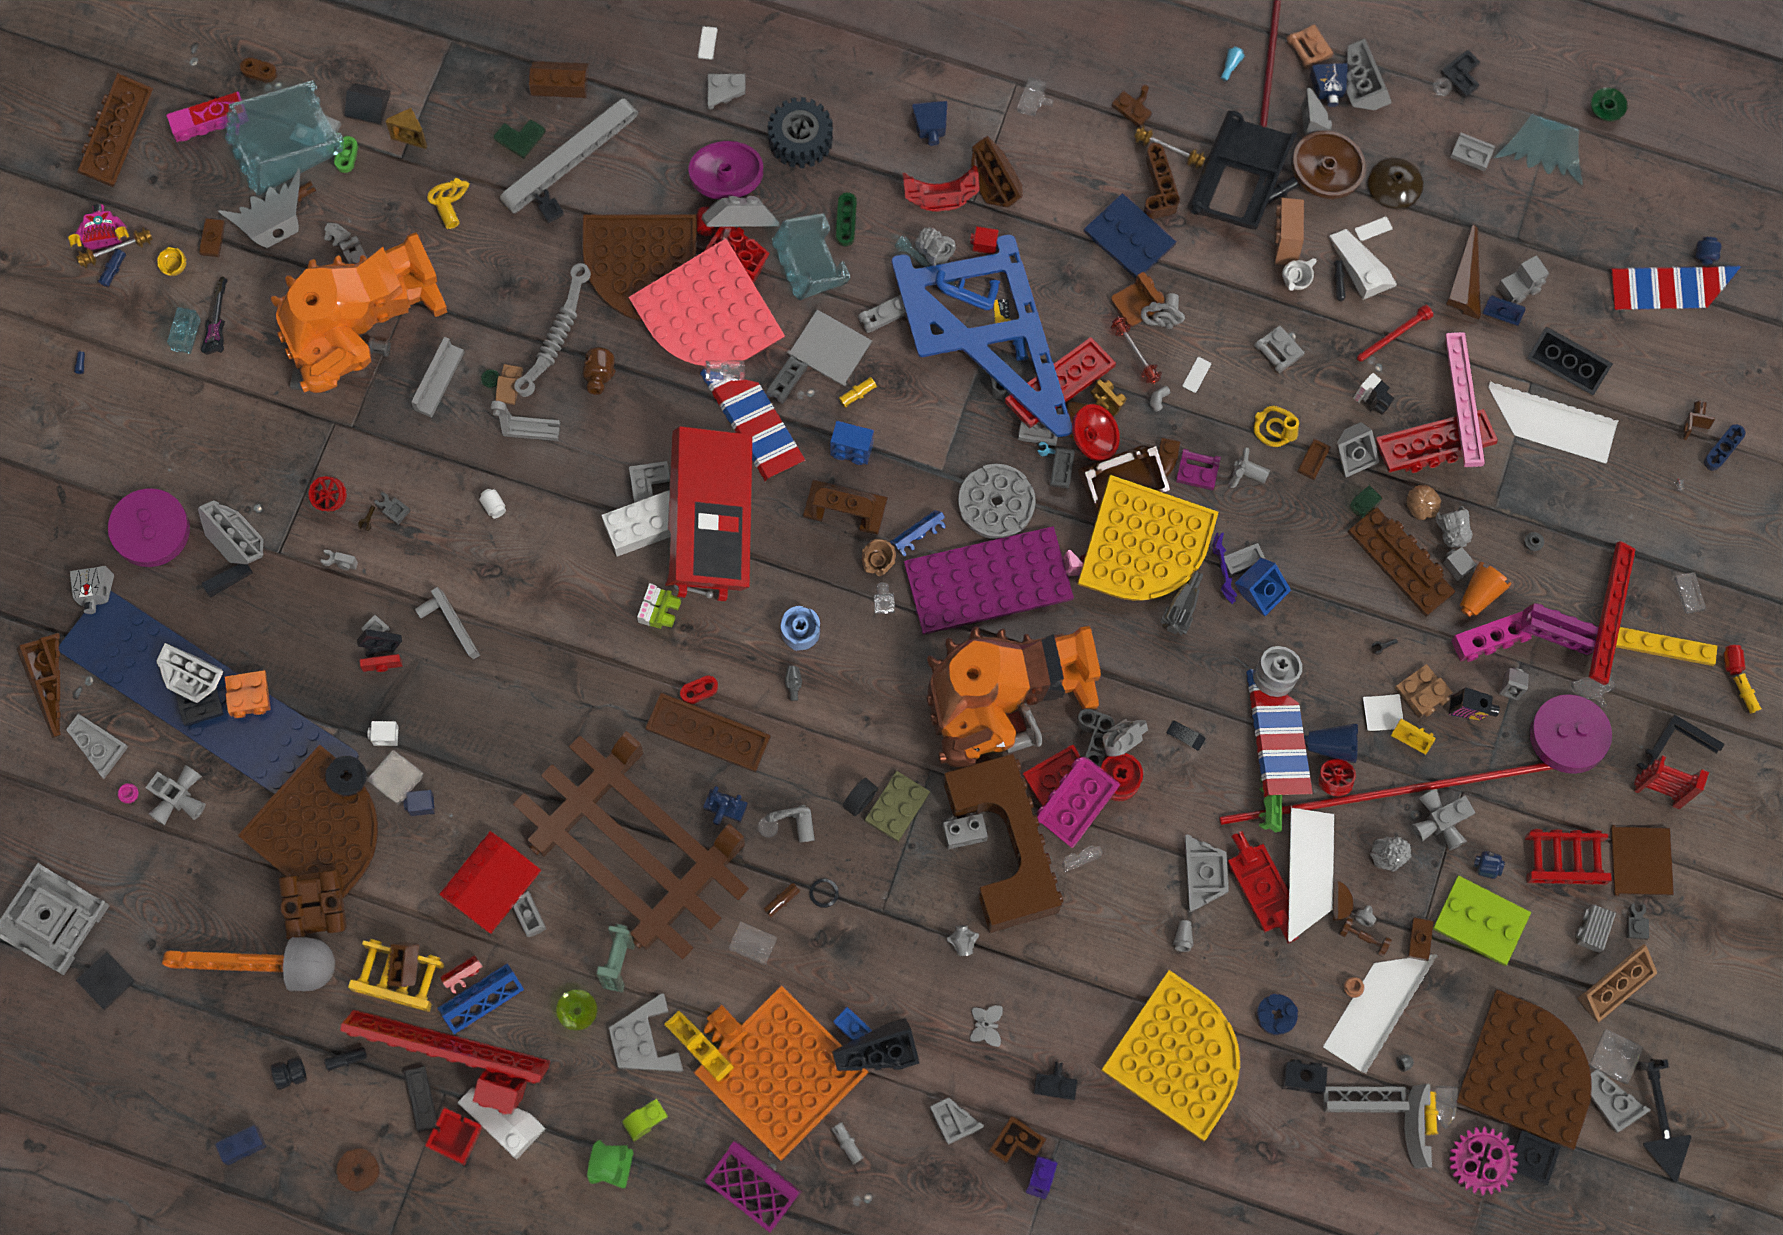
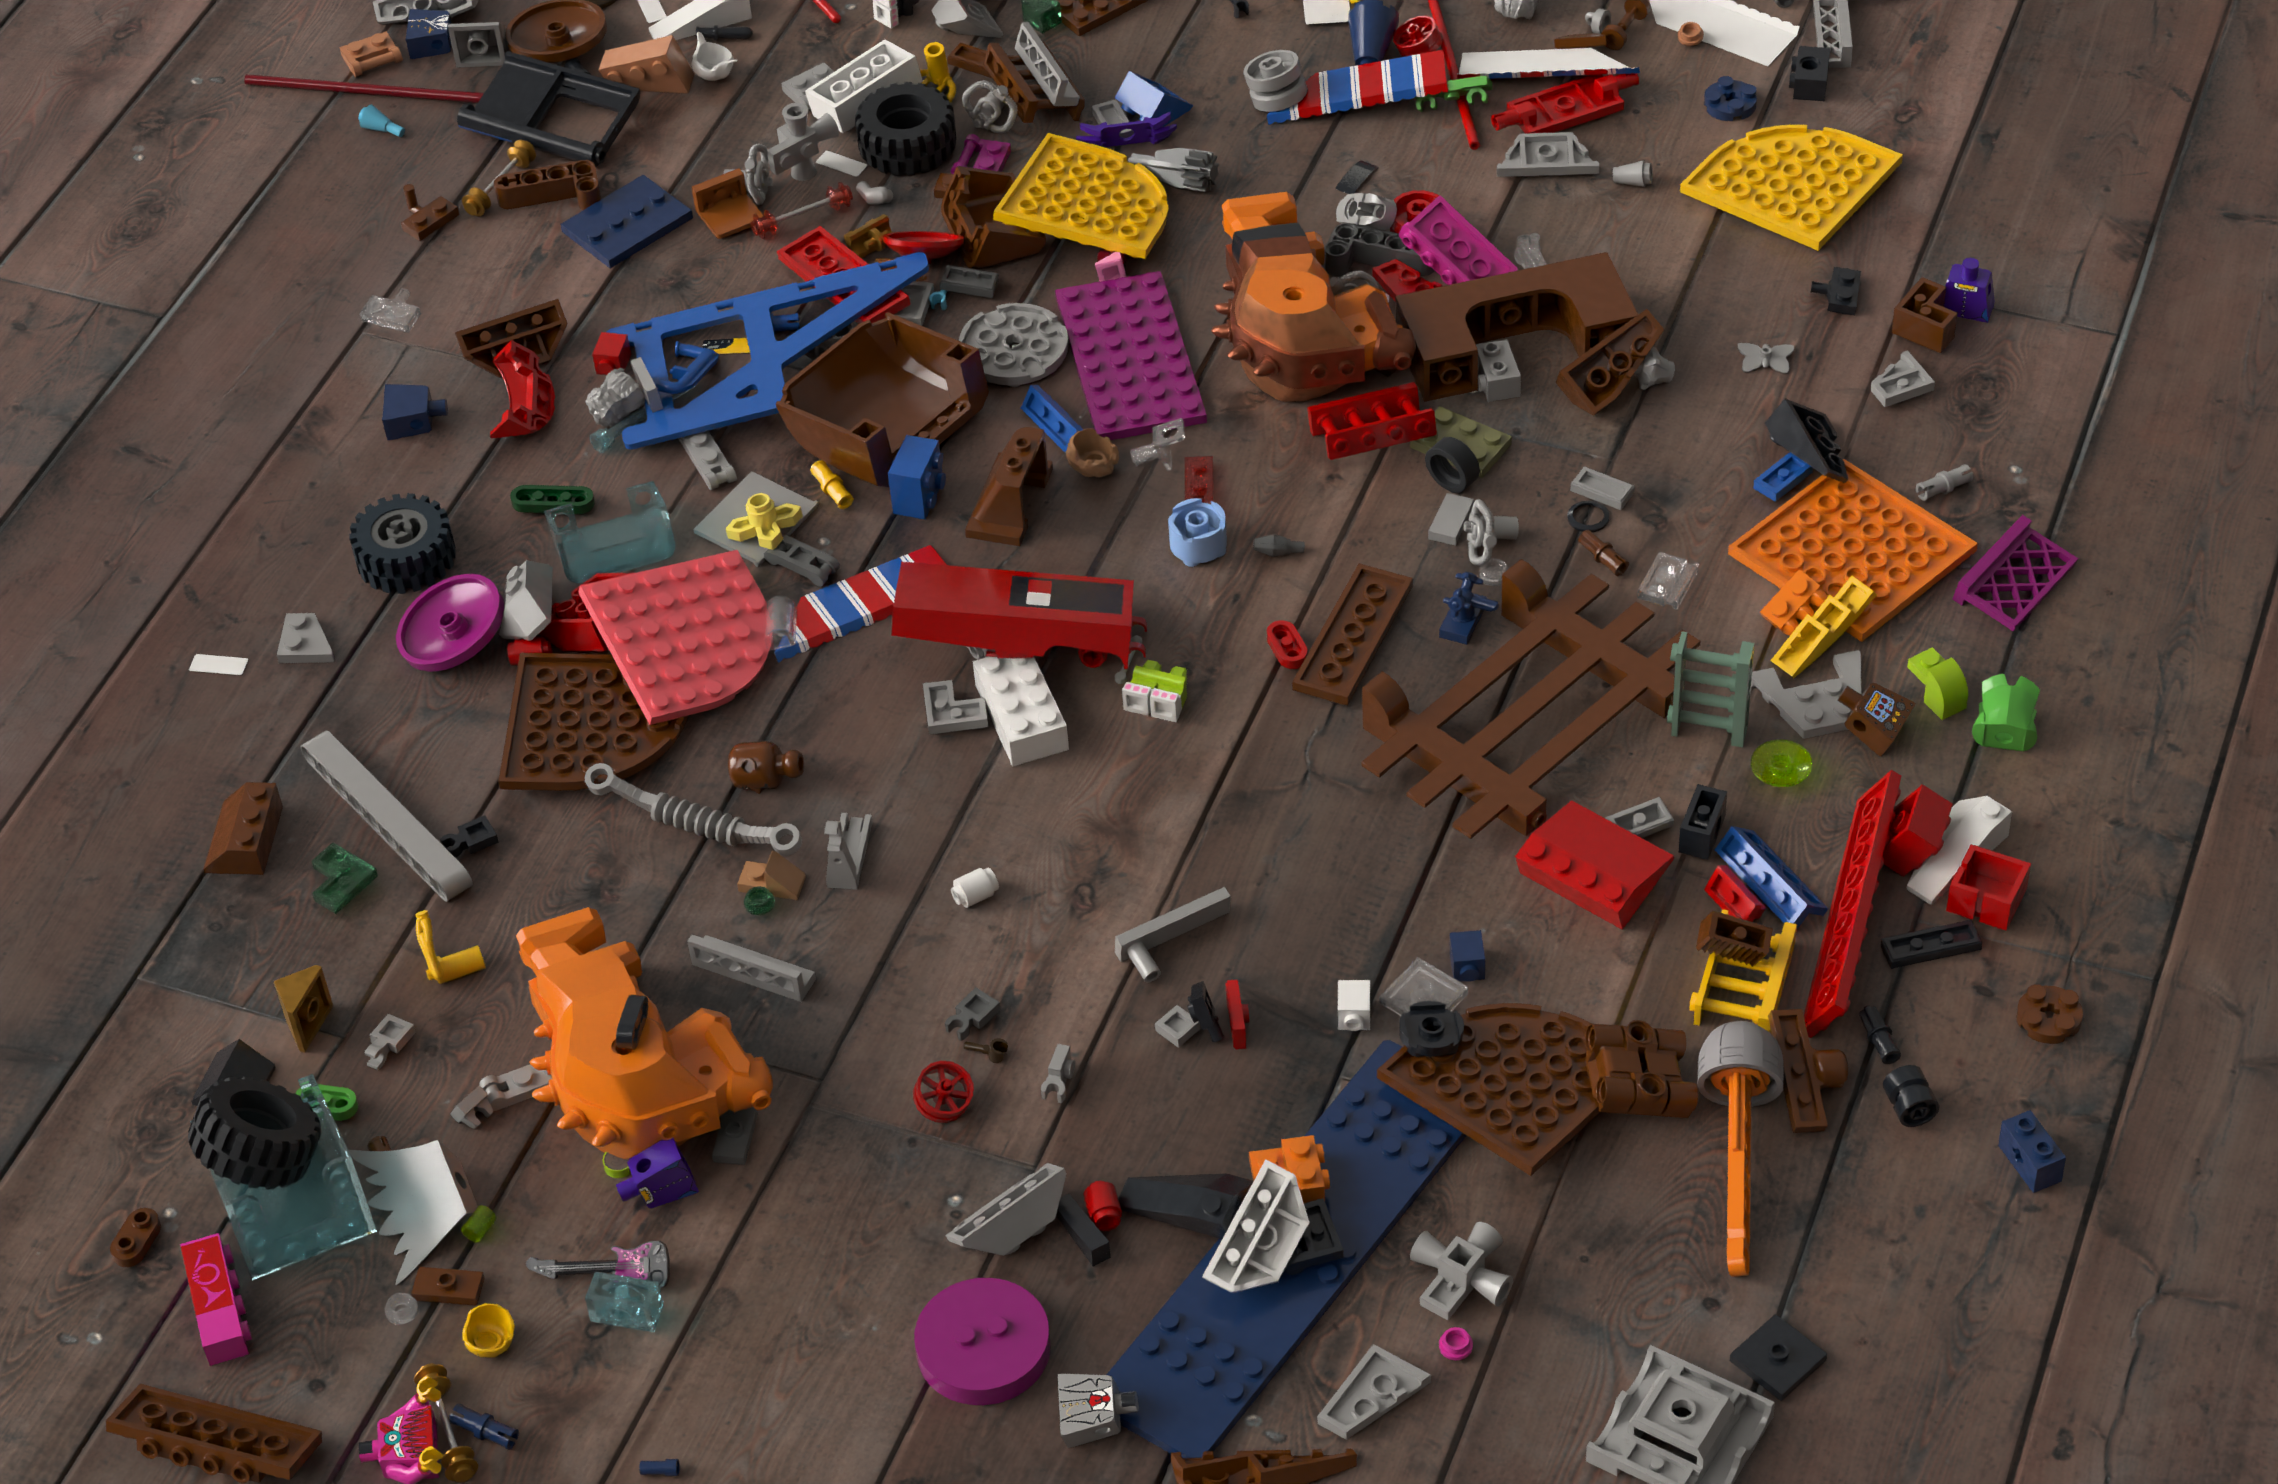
camera: 80 degrees left, 25 degrees down
(194, 211) = (398, 1302): none -> clear plate
(230, 640) = (1188, 1201): none -> black wedge
(239, 589) = (1103, 1205): none -> red brick
(253, 248) = (478, 1223): none -> clear neon green hinge
(268, 332) = (658, 1175): none -> dark purple torso
(311, 1007) = (1805, 1070): none -> reddish brown plate
(313, 104) = (254, 1133): none -> black tyre
(320, 299) = (632, 1022): none -> black beam
(393, 182) = (388, 1036): none -> light grey plate
(521, 954) = (1702, 821): none -> black brick
(613, 1075) = (1875, 715): none -> reddish brown torso
(816, 350) = (764, 521): none -> light yellow plant
(820, 799) = (1450, 519): none -> light grey tile
(849, 903) = (1602, 488): none -> light grey tile
(854, 630) = (1199, 478): none -> clear red plate
(920, 730) = (1371, 421): none -> red fence
(924, 413) = (877, 389): none -> reddish brown slope
(942, 262) = (646, 384): none -> light grey tile
(954, 905) = (1605, 369): none -> reddish brown wedge
(1191, 339) = (800, 142): none -> light grey brick
(1219, 435) = (905, 128): none -> black tyre
(1260, 488) = (1004, 72): none -> reddish brown fence
(1265, 379) = (851, 84): none -> white brick
(1282, 506) = (1044, 68): none -> light grey fence

